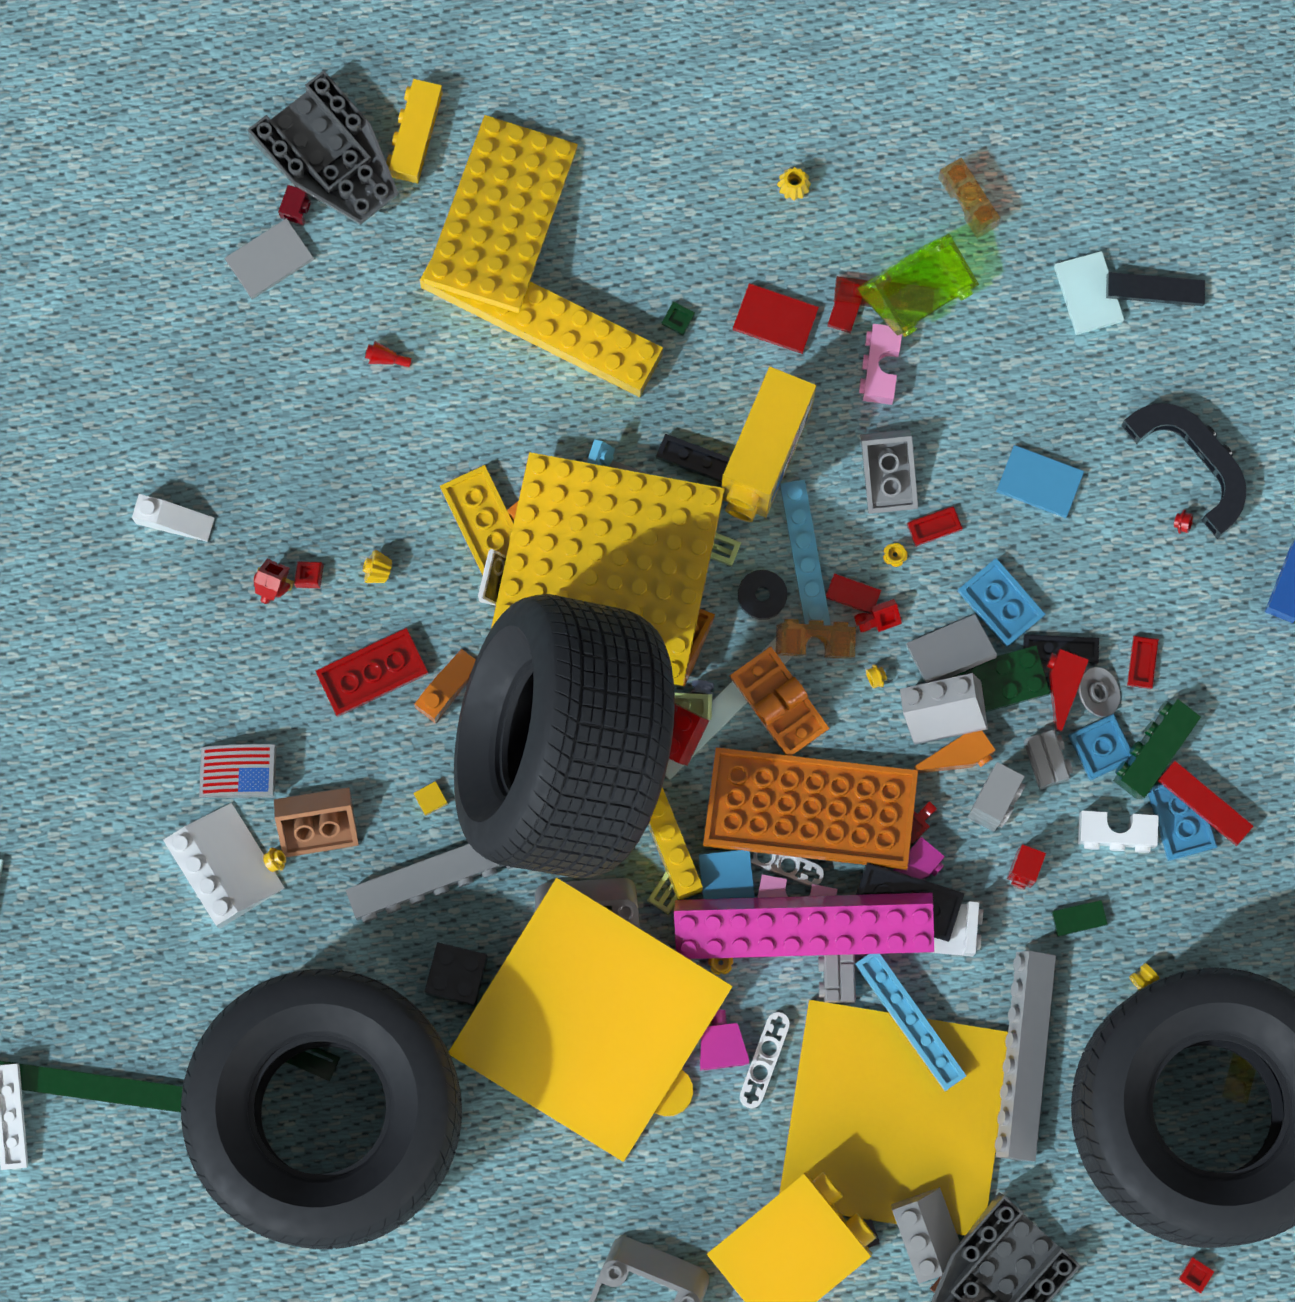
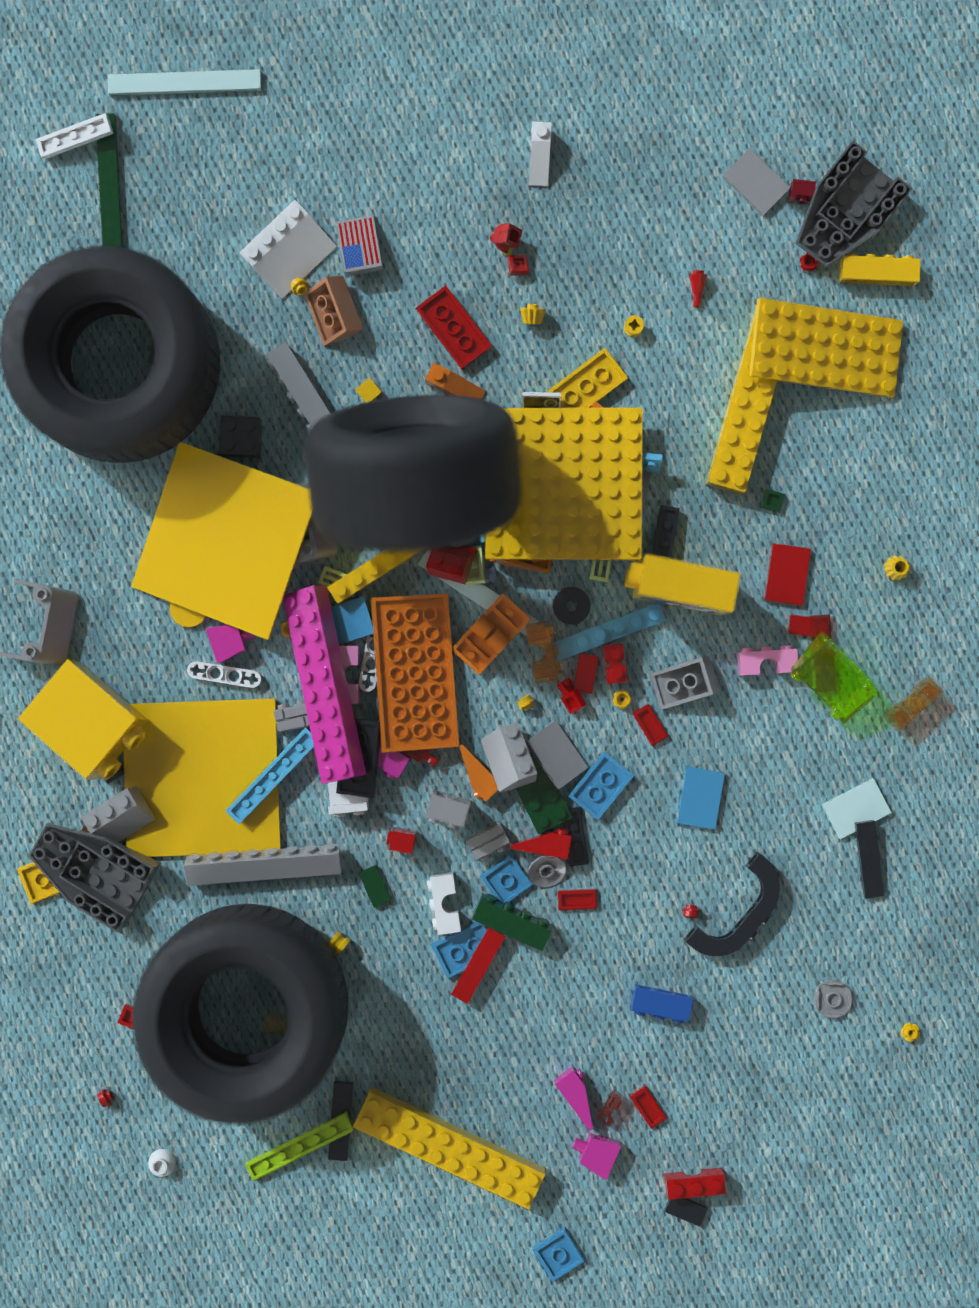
camera: 80 degrees right, 10 degrees up
(389, 219) = (805, 266): none -> red plate
(419, 450) = (633, 330): none -> yellow wheel
(837, 550) = (615, 671): none -> red piece

